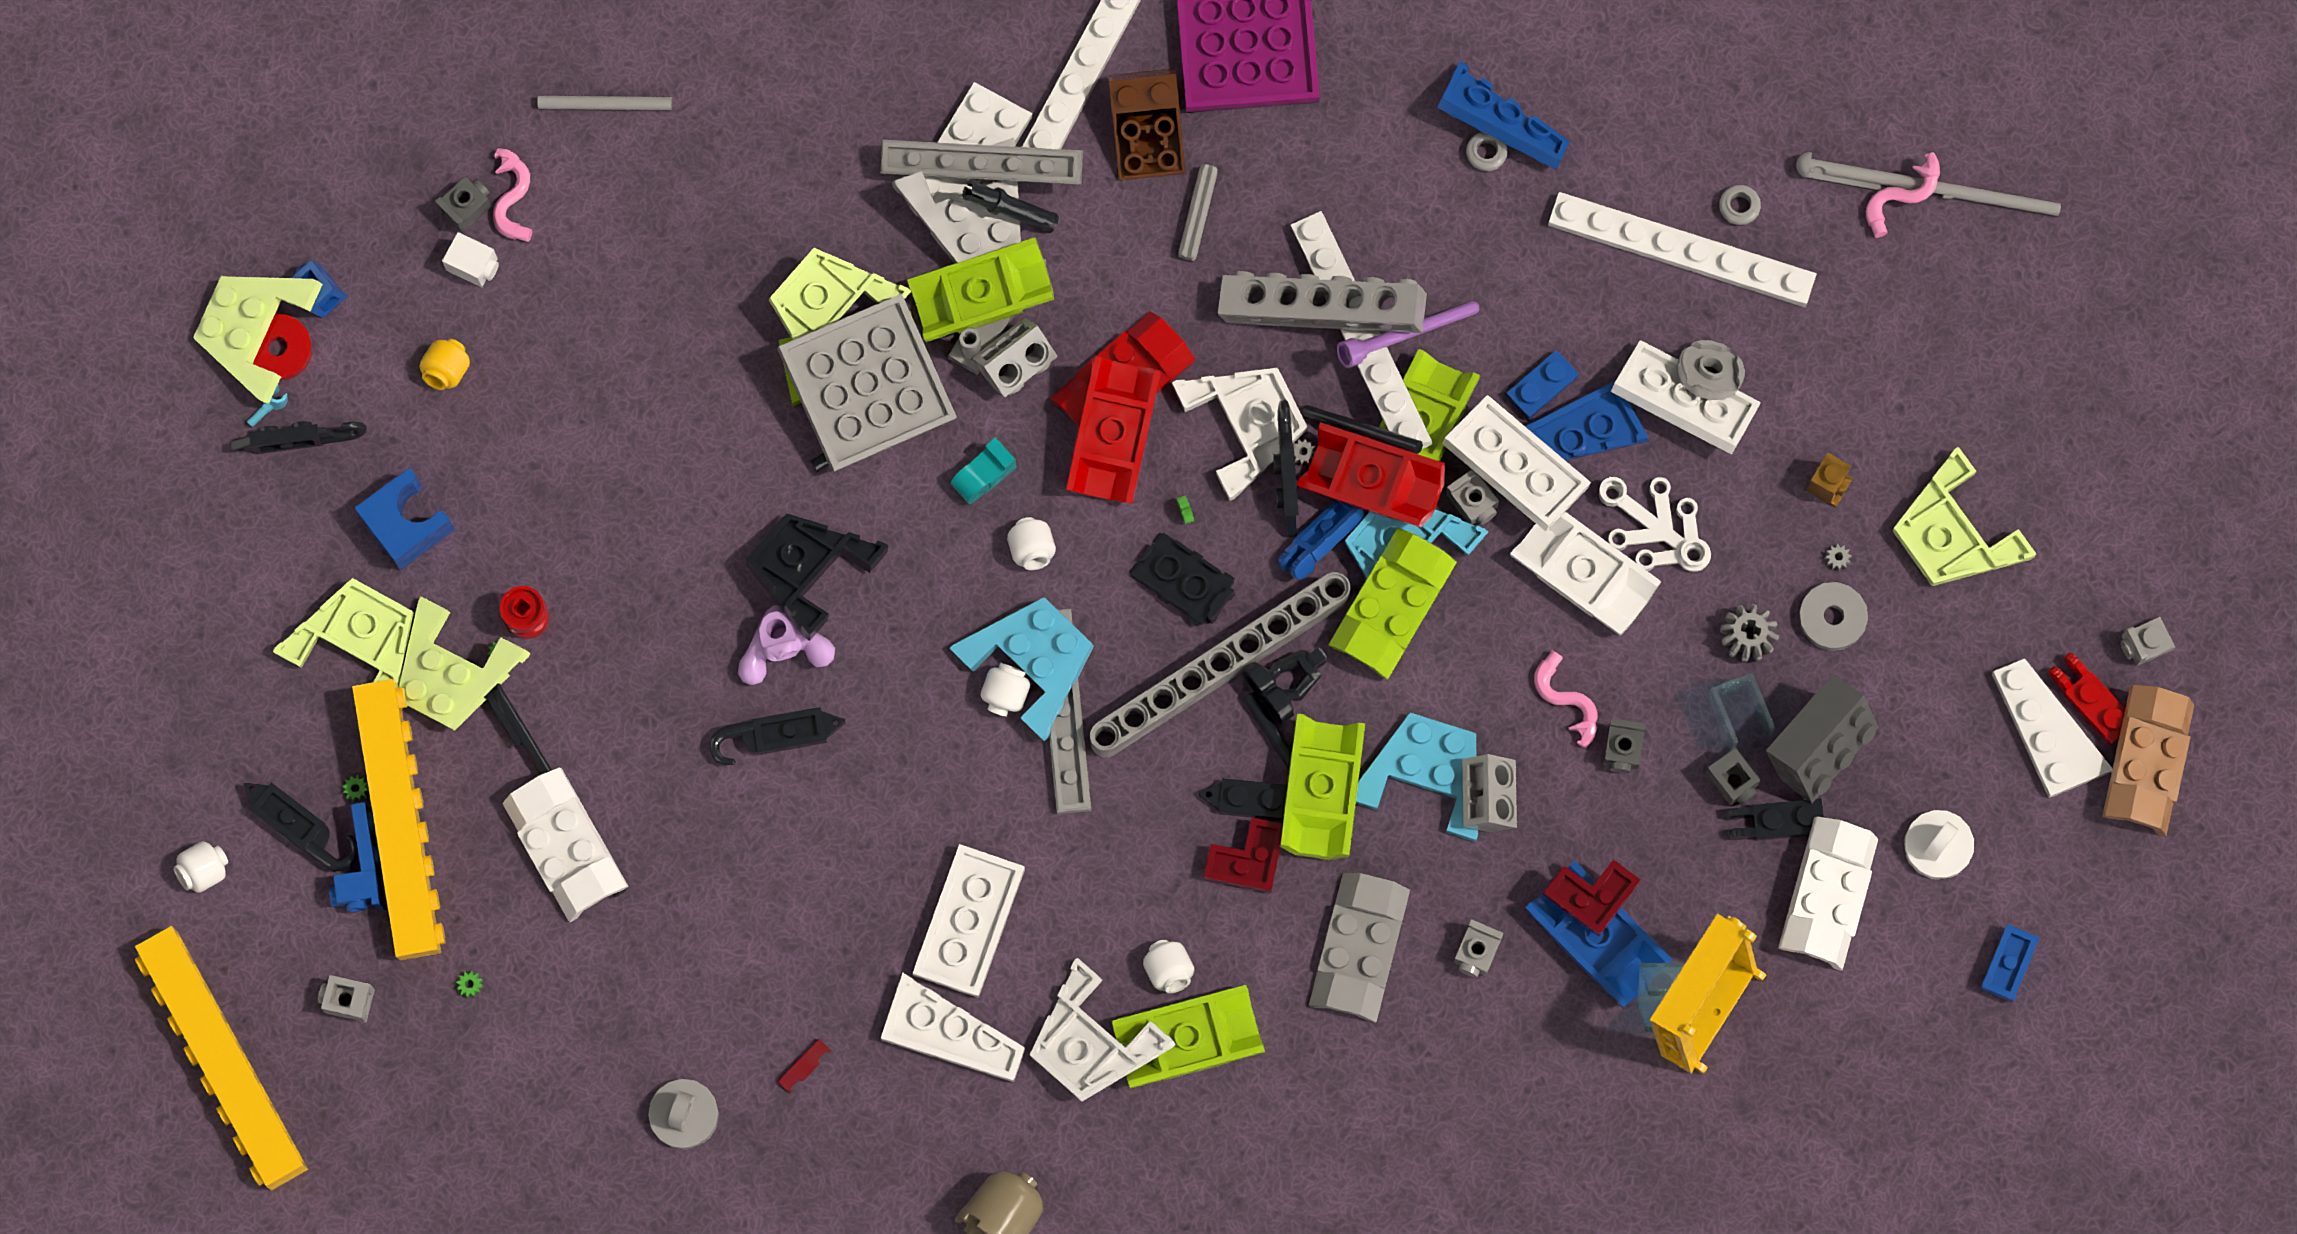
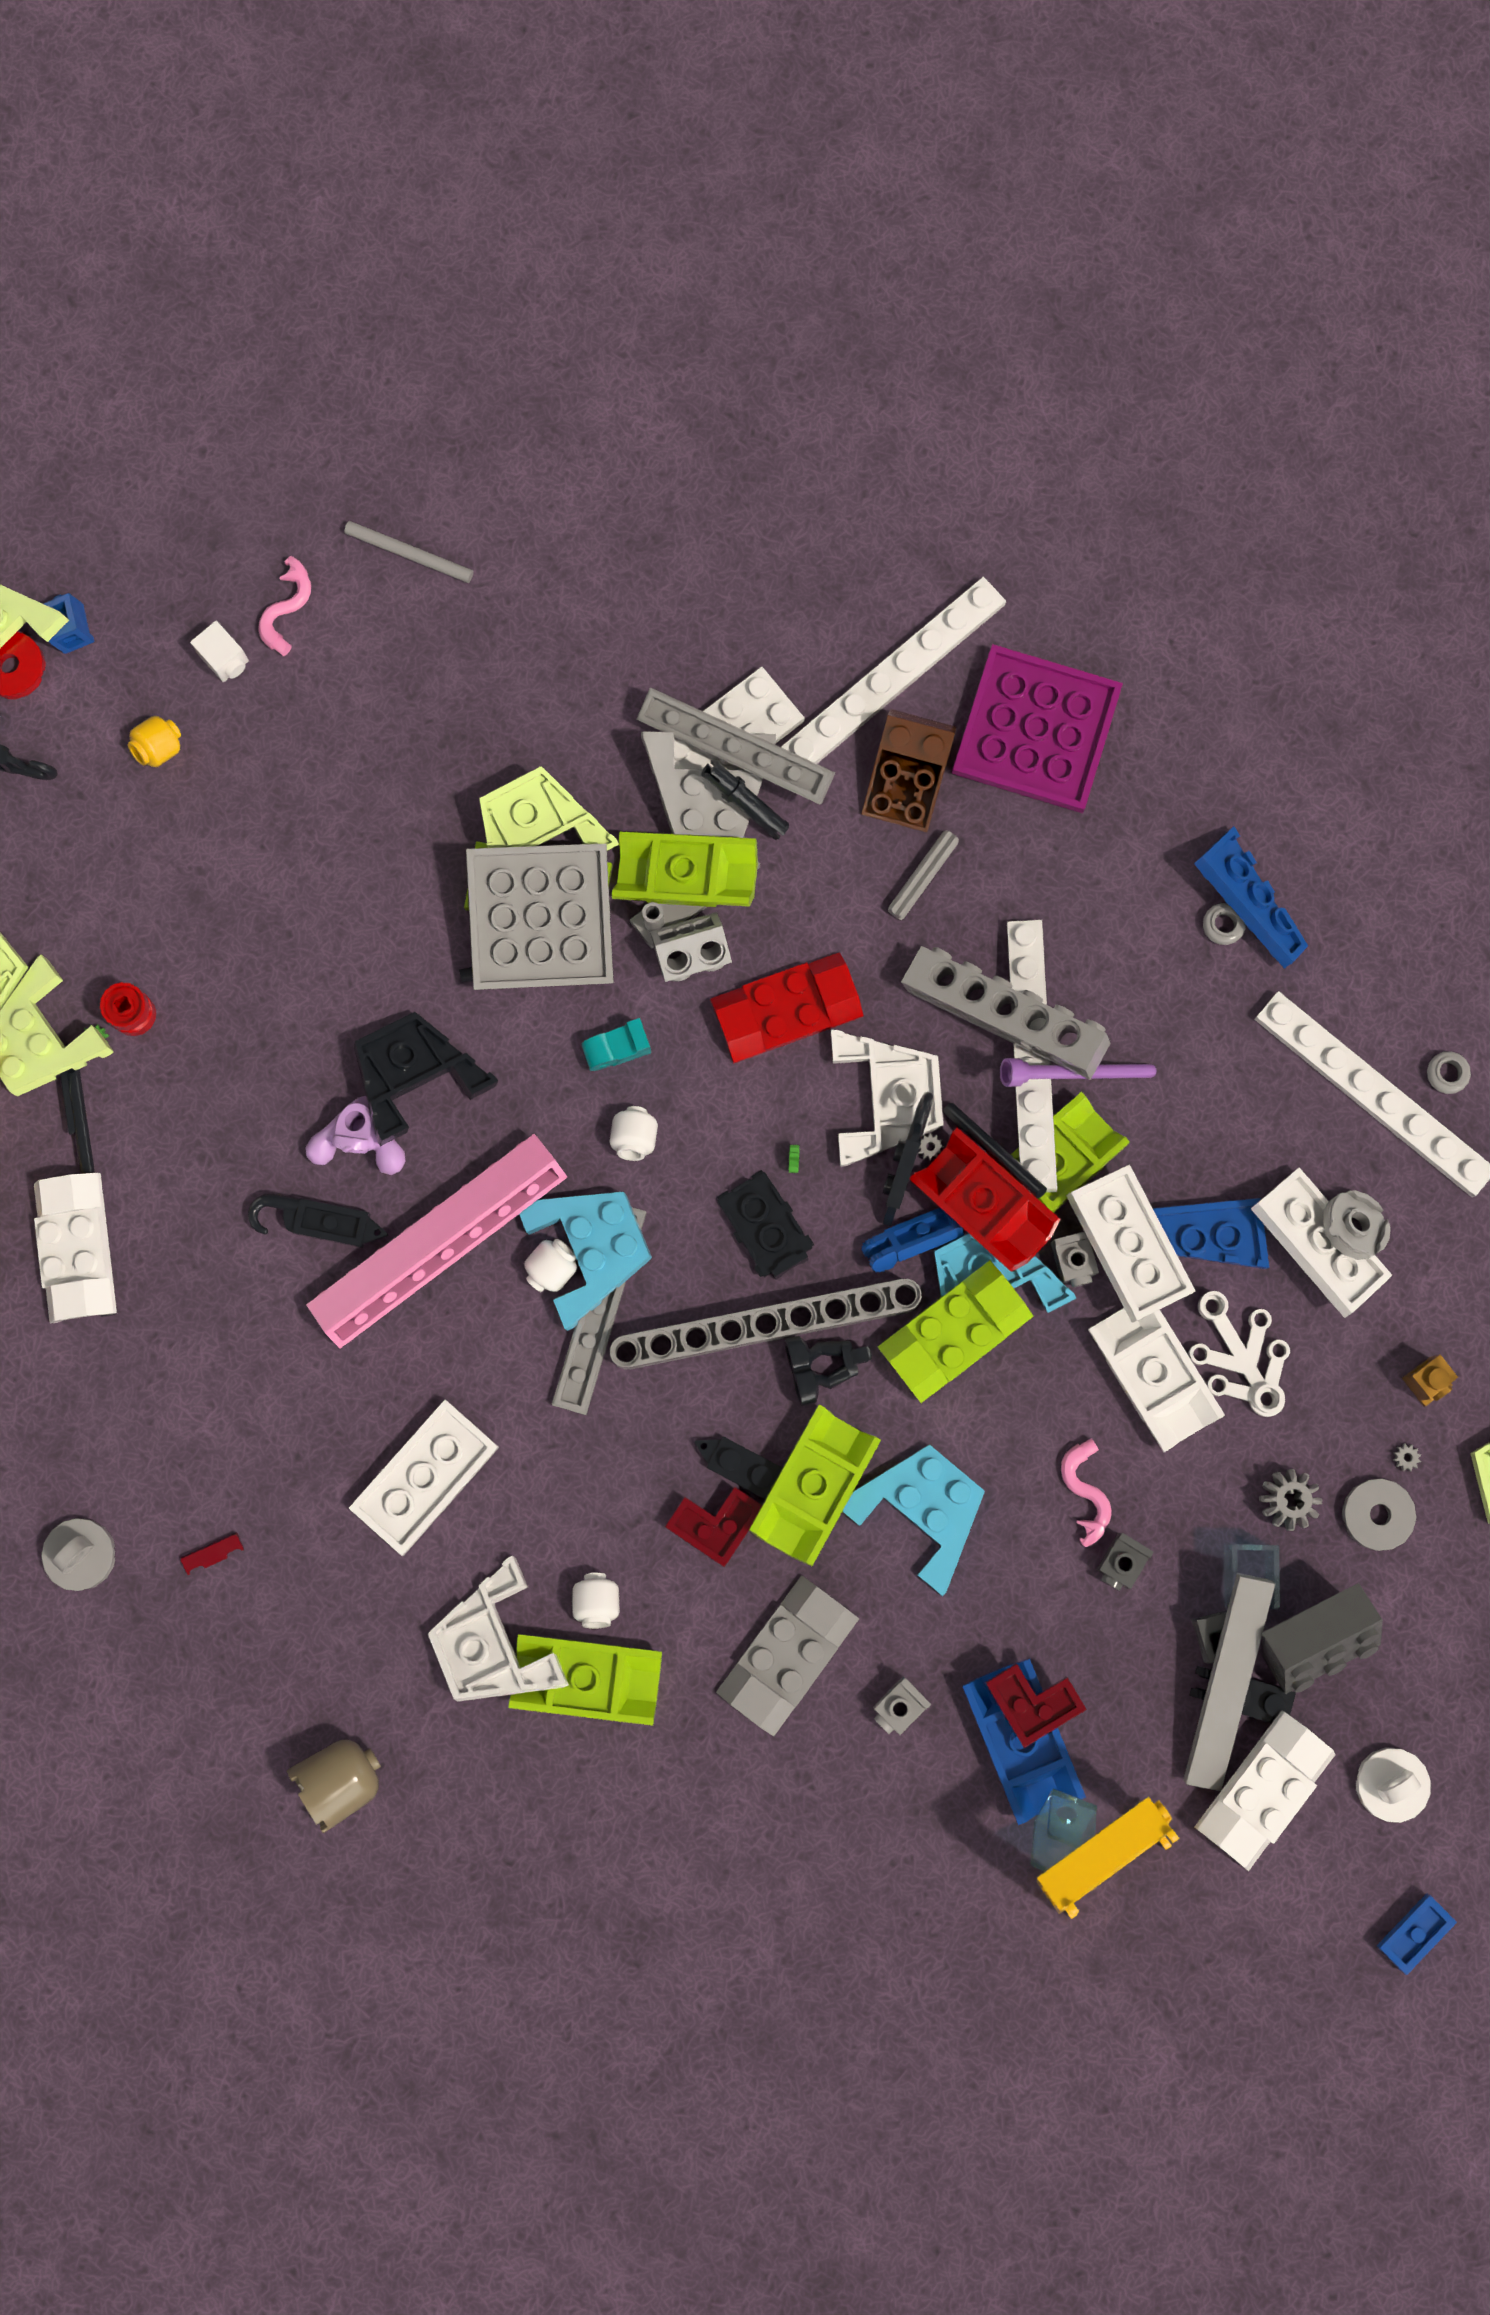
camera: 20 degrees right, 5 degrees up
(385, 520) = (37, 875): blue piece -> none
(464, 214) = (237, 606): dark grey brick -> none
(893, 707) = (436, 1241): none -> bright pink brick
(941, 1030) = (356, 1575): white wing -> none
(1112, 430) = (754, 1055): red piece -> none
(1268, 728) = (788, 1404): black bar -> none
(1489, 793) = (973, 1558): light grey brick -> none
(1542, 385) = (1186, 1173): blue plate -> none
(1756, 809) = (1229, 1681): none -> light grey tile

